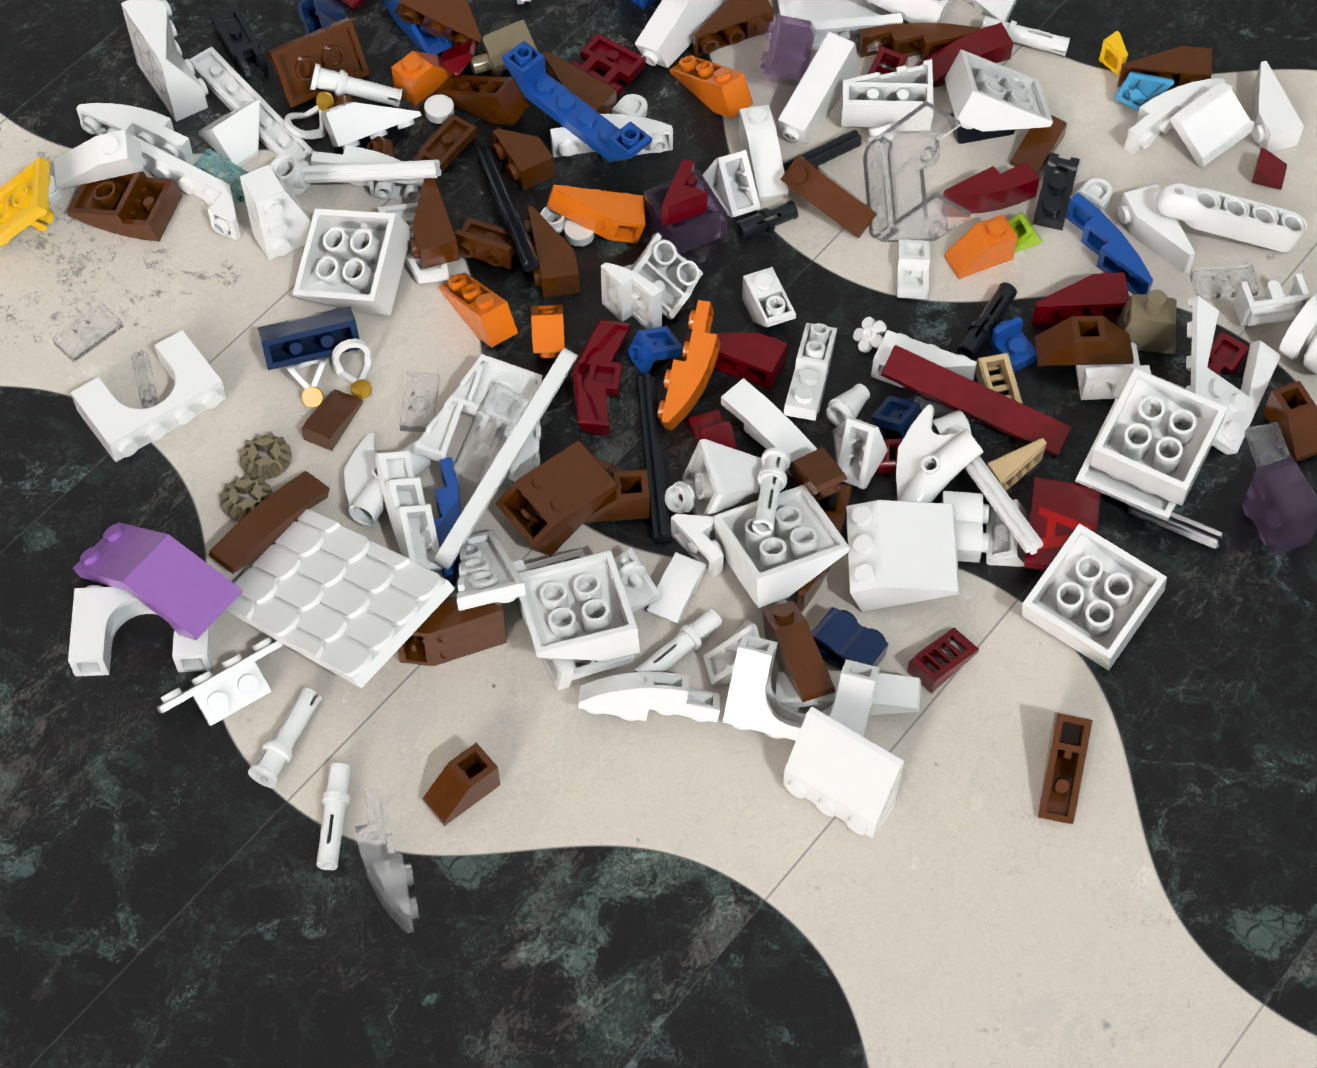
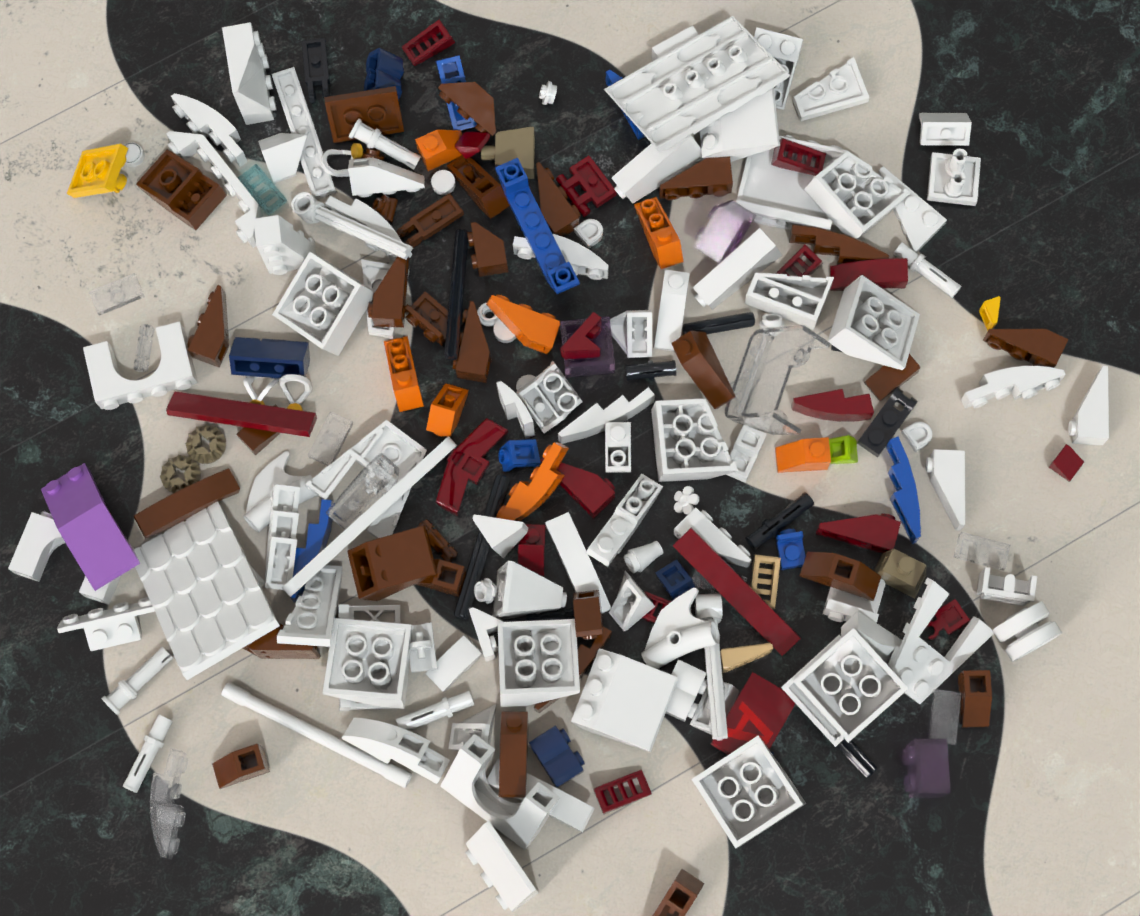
camera: 25 degrees right, 15 degrees up
(99, 159) = (170, 152): white slope -> none
(227, 341) = (212, 334): none -> reddish brown slope
(298, 406) = (241, 414): none -> dark red tile
(650, 732) = (246, 699): none -> white piece
(673, 422) = (500, 533): none -> white slope
(727, 283) = (594, 419): none -> white slope
(772, 481) = (550, 610): white pin -> none
(845, 271) = (688, 441): none -> white wedge
(1141, 88) = (996, 355): dark azure piece -> none
(1212, 123) = (1035, 409): white slope -> none
(1232, 216) = (1019, 502): white piece -> none

